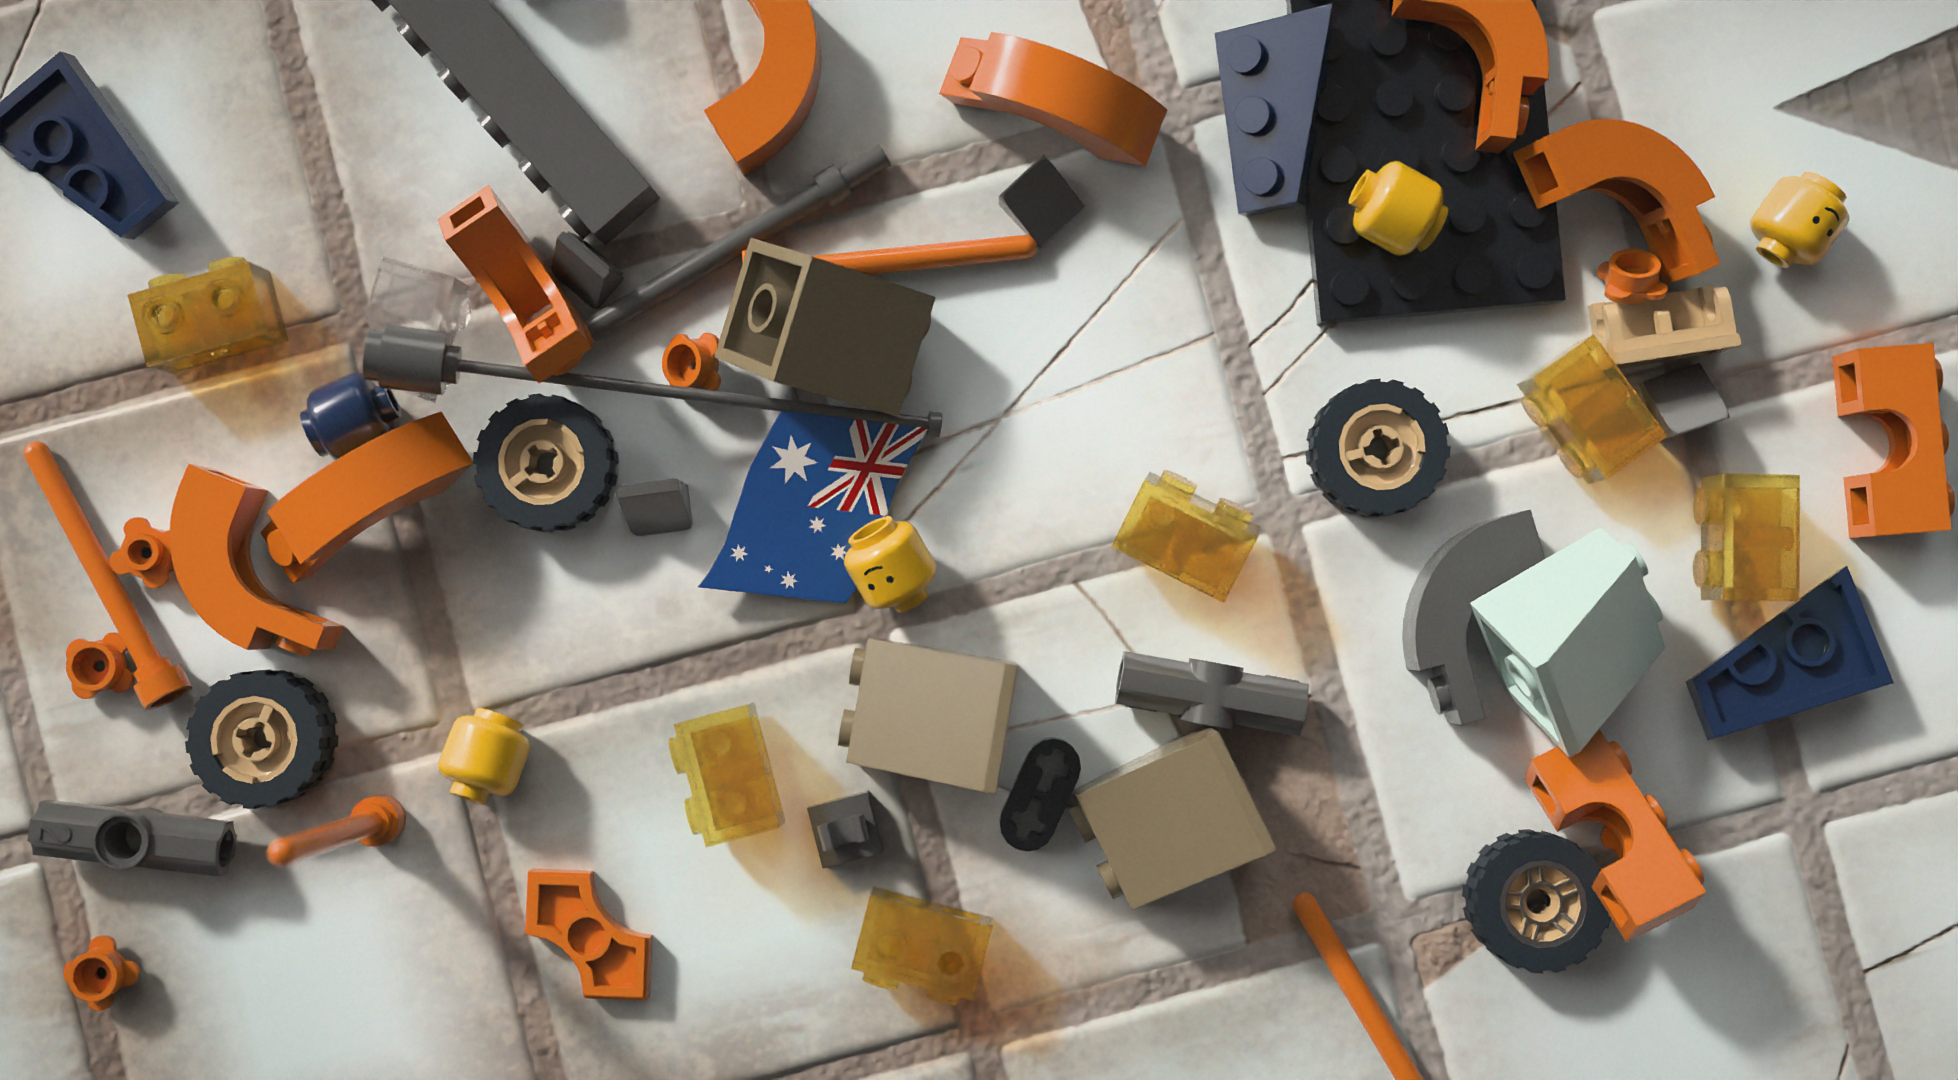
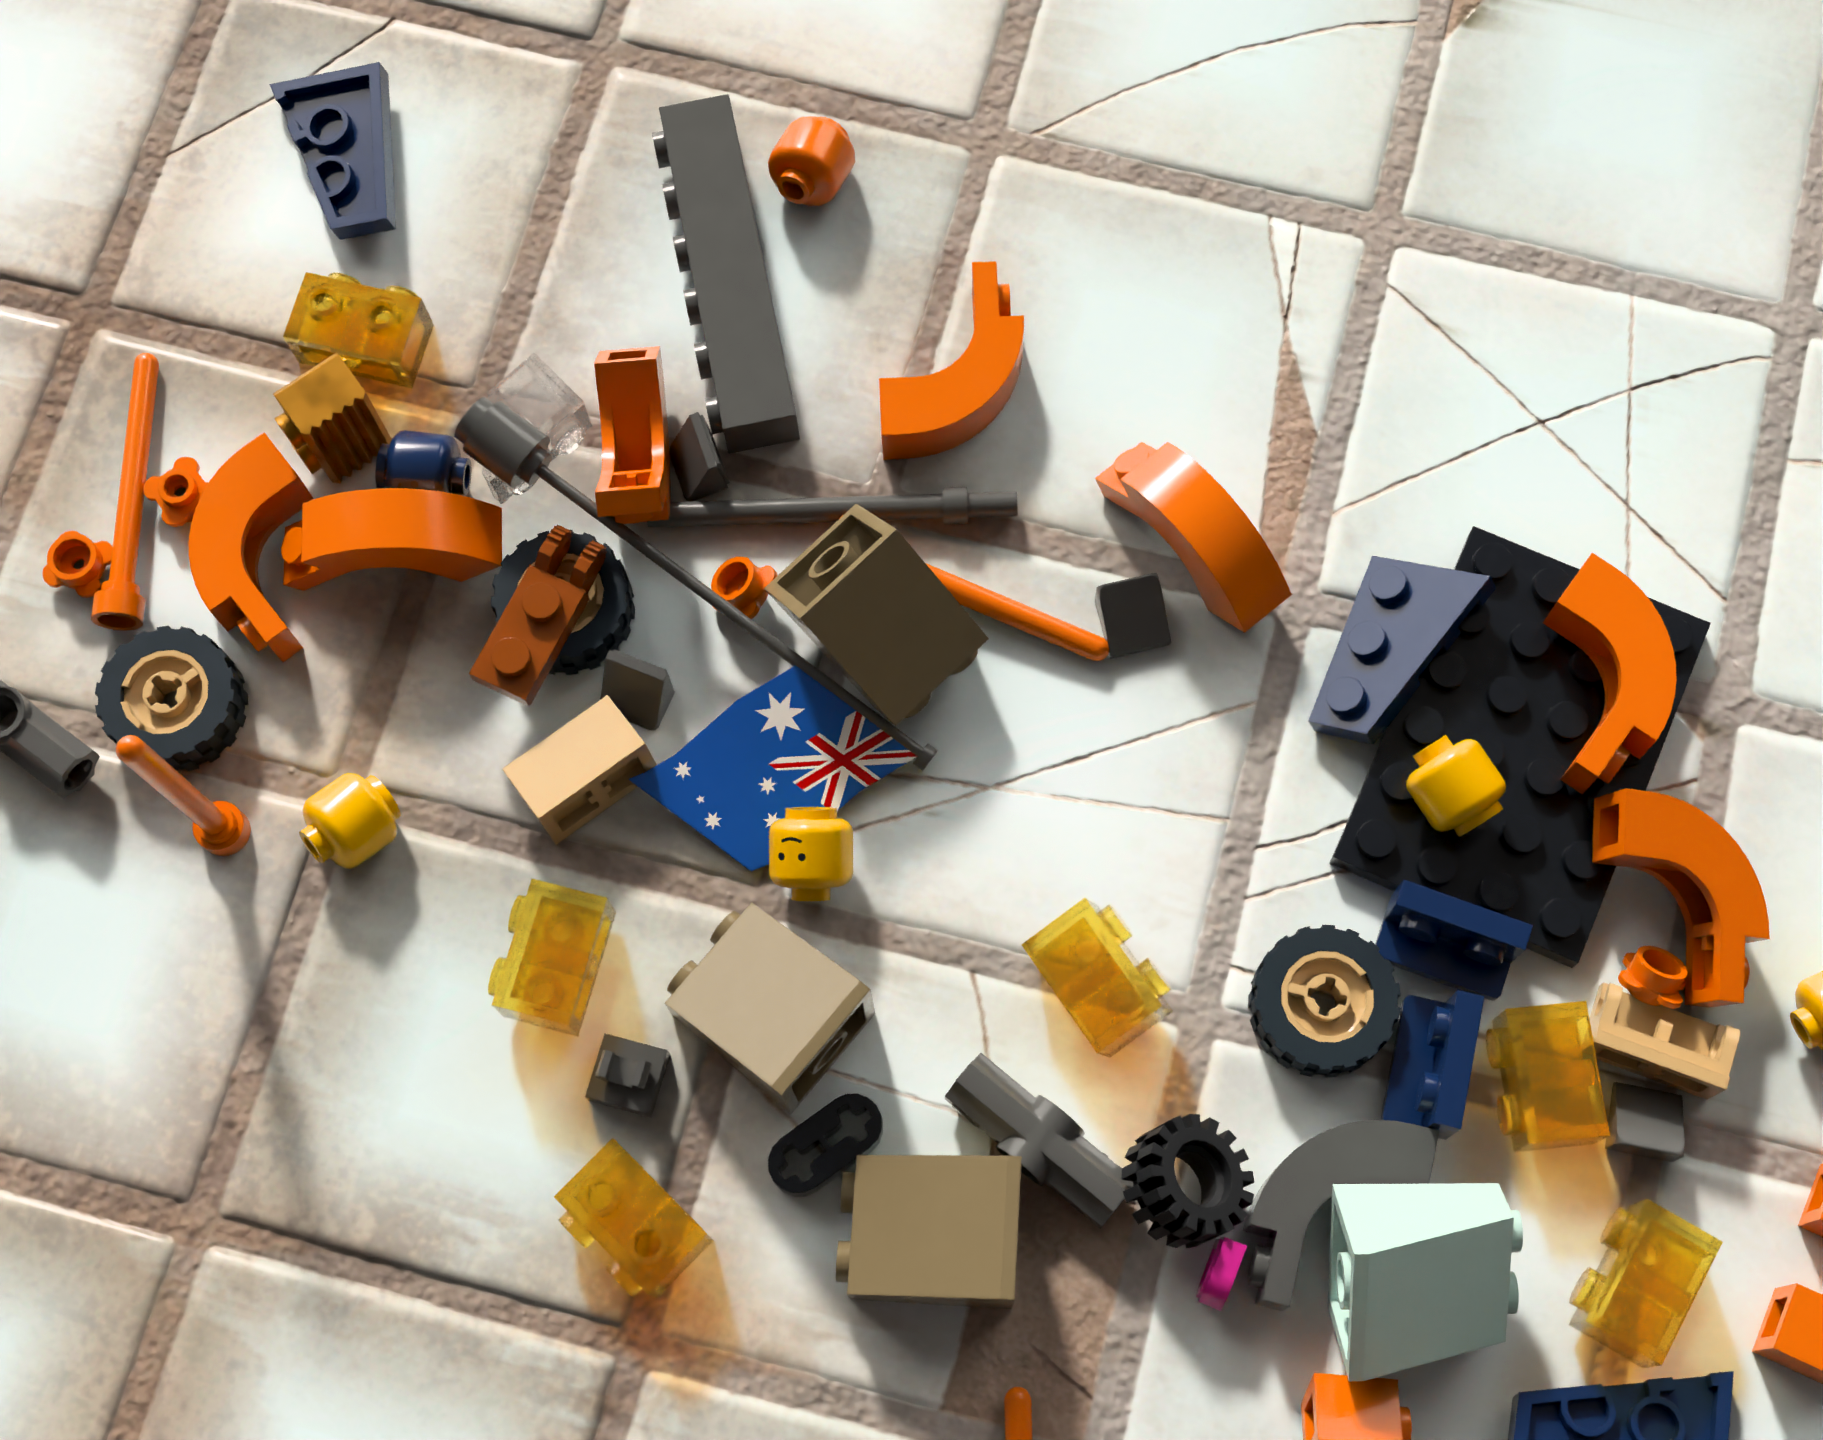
camera: 30 degrees right, 15 degrees down
(240, 419) = (330, 420): none -> pearl gold brick
(538, 497) = (537, 620): none -> dark orange hinge
(608, 955) = (342, 1064): orange tile -> none
(651, 601) = (580, 769): none -> tan hinge
(1374, 647) = (1161, 1195): none -> black tyre
(1411, 715) = (1220, 1272): none -> dark pink tile
(1454, 342) = (1450, 939): none -> dark blue bracket
(1494, 453) = (1433, 1061): none -> dark blue bracket

